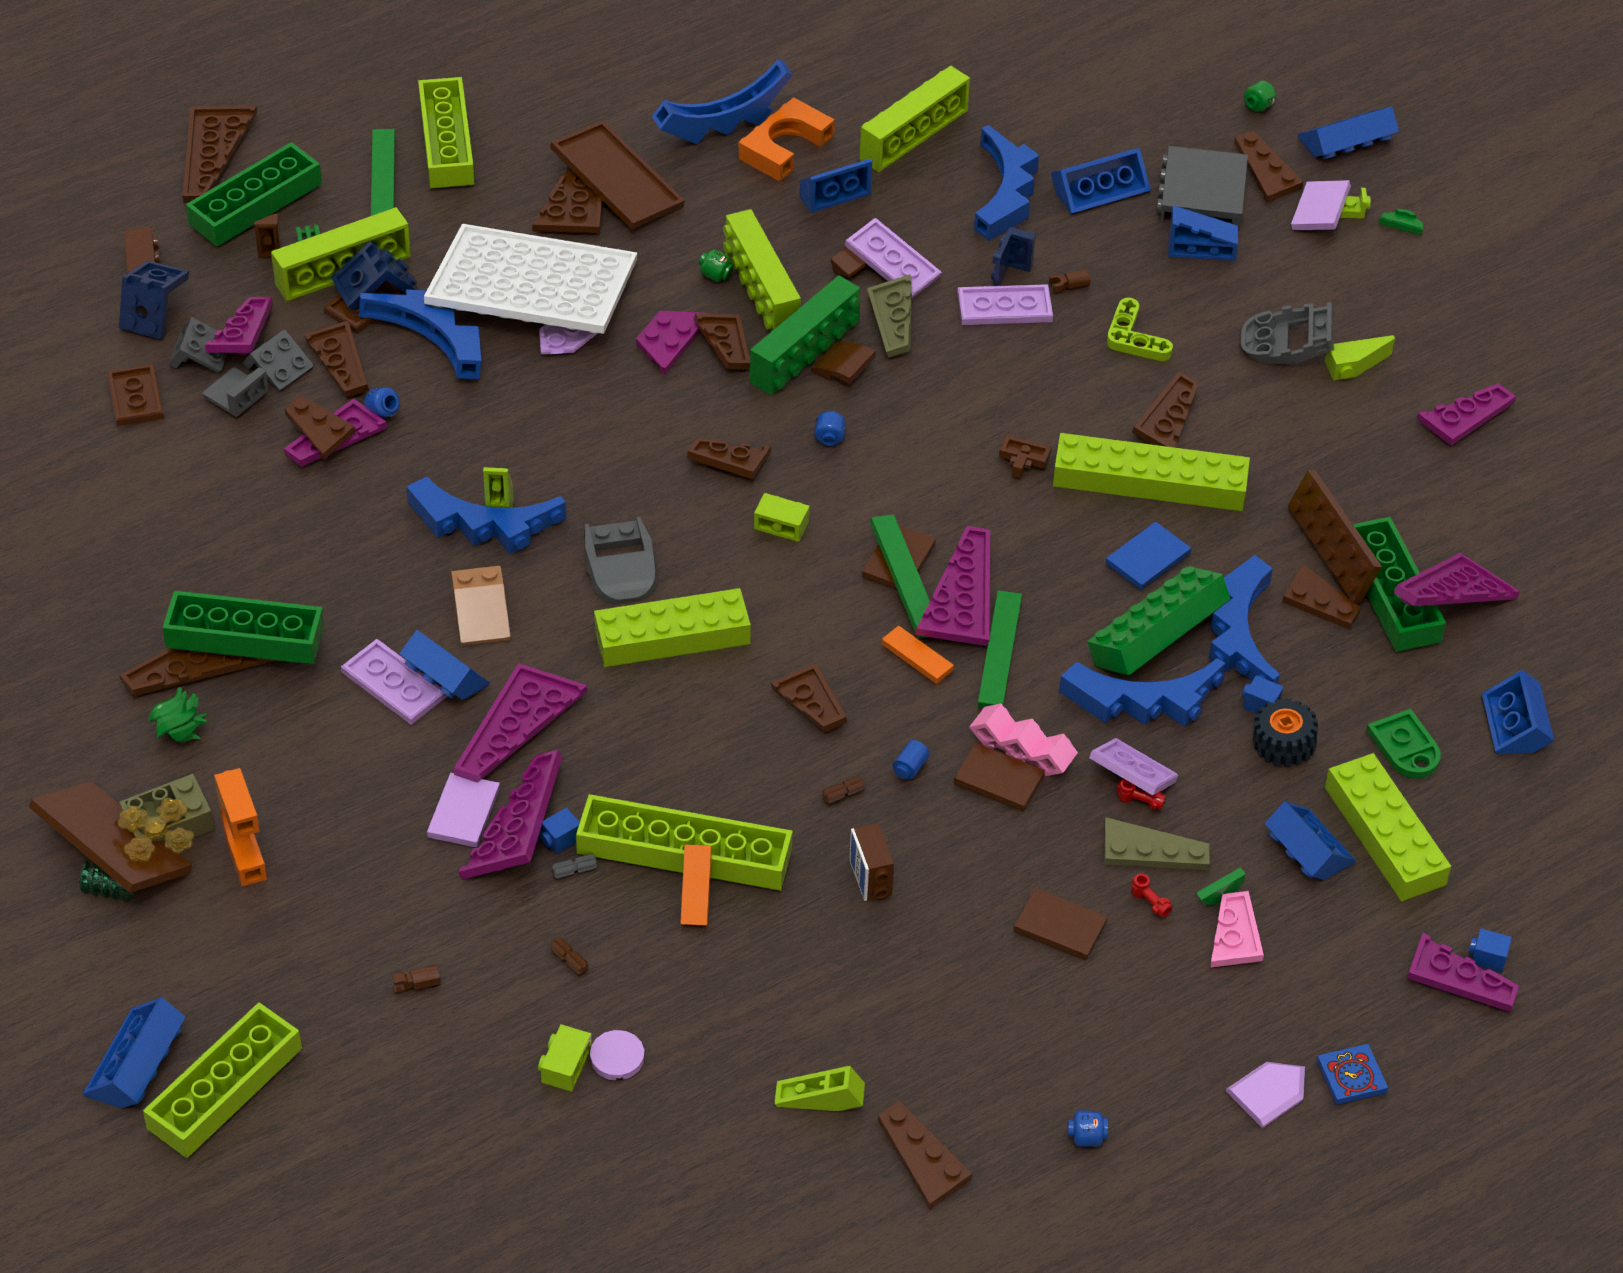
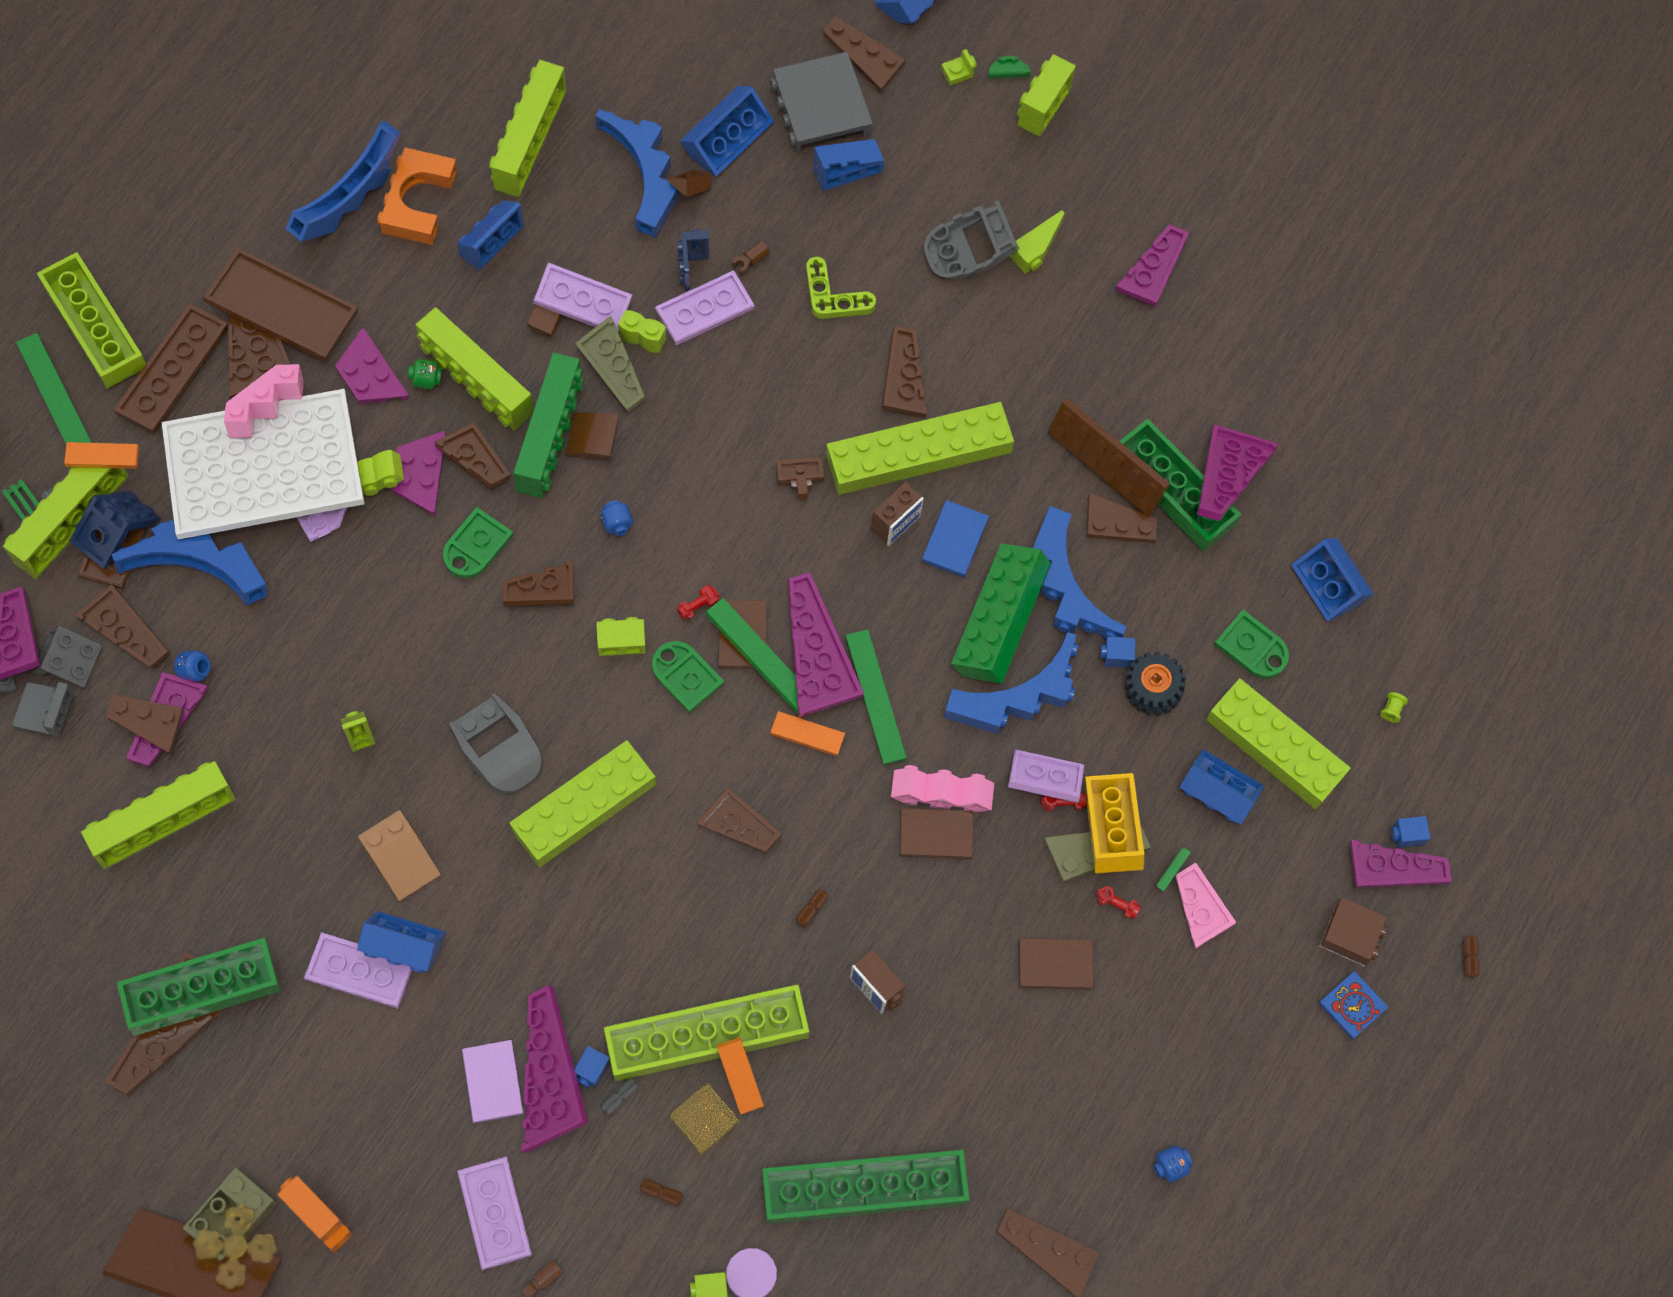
camera: 30 degrees left, 20 degrees up
(177, 717) = (186, 1109): green hair -> none
(286, 495) = (158, 815): none -> lime brick
(394, 215) = (101, 455): none -> orange tile
(404, 912) = (494, 1213): none -> lavender tile
(480, 523) = (351, 763): blue arch -> none
(494, 190) = (171, 368): none -> reddish brown plate
(519, 712) = (492, 956): magenta wing -> none
(559, 231) = (262, 399): none -> bright pink brick
(632, 319) = (380, 472): none -> lime brick
(643, 912) = (704, 1118): none -> clear yellow plate
(666, 251) = (368, 372): none -> magenta wing
(688, 406) = (476, 543): none -> green tile
(764, 1020) = (865, 1186): none -> green brick
(825, 1090) = (939, 1232): lime slope -> none
(828, 571) = (686, 676): none -> green tile
(855, 519) = (708, 596): none -> red bar
(910, 759) = (856, 853): blue brick -> none
(934, 299) = (646, 332): none -> lime brick
(1045, 205) = (691, 182): none -> reddish brown slope
(1098, 510) = (896, 513): none -> reddish brown piece
(1179, 821) = (1114, 823): none -> yellow brick
(1269, 1091) = (1295, 1052): lavender tile -> none
(1321, 205) = (933, 81): lavender tile -> none
(1384, 1009) = (1354, 932): none -> reddish brown piece
(1426, 245) = (1045, 94): none -> lime brick
(1502, 1081) = (1471, 951): none -> reddish brown piece
(1526, 843) = (1393, 707): none -> lime bush

